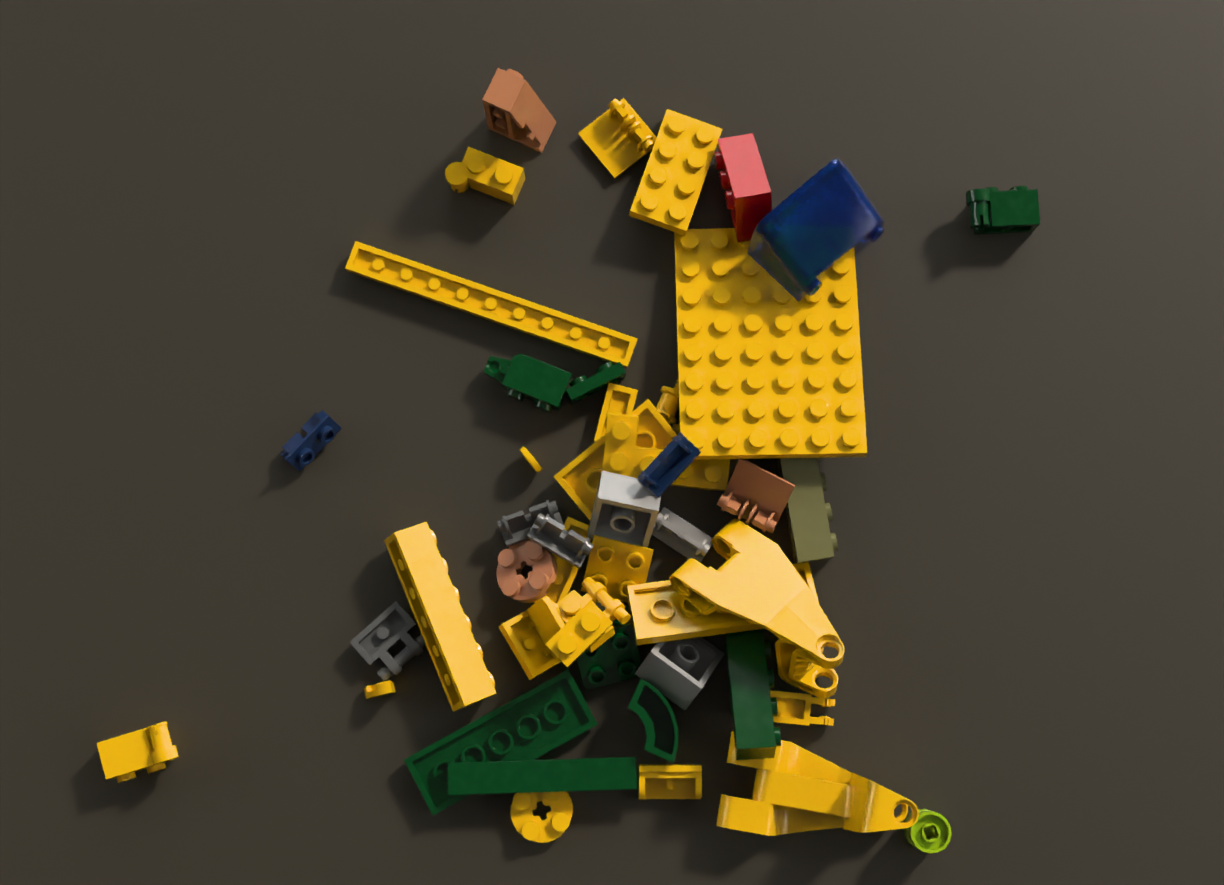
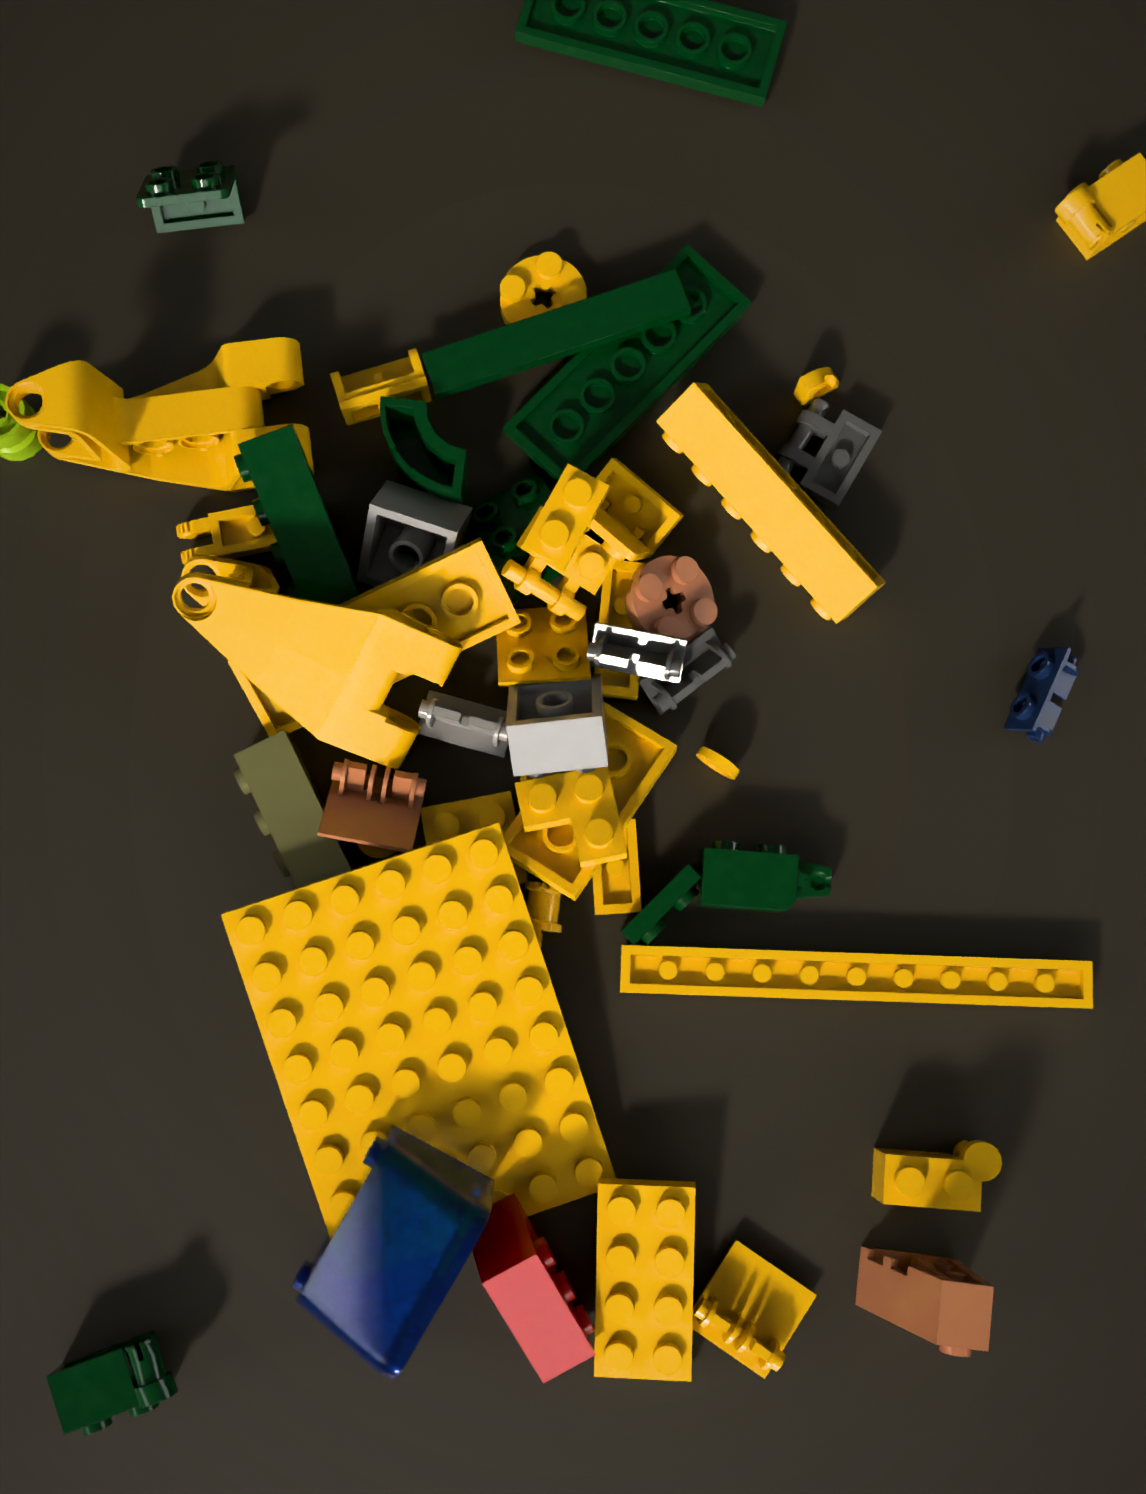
camera: 160 degrees right, 0 degrees up
(669, 465) = (512, 801): dark blue hinge -> none

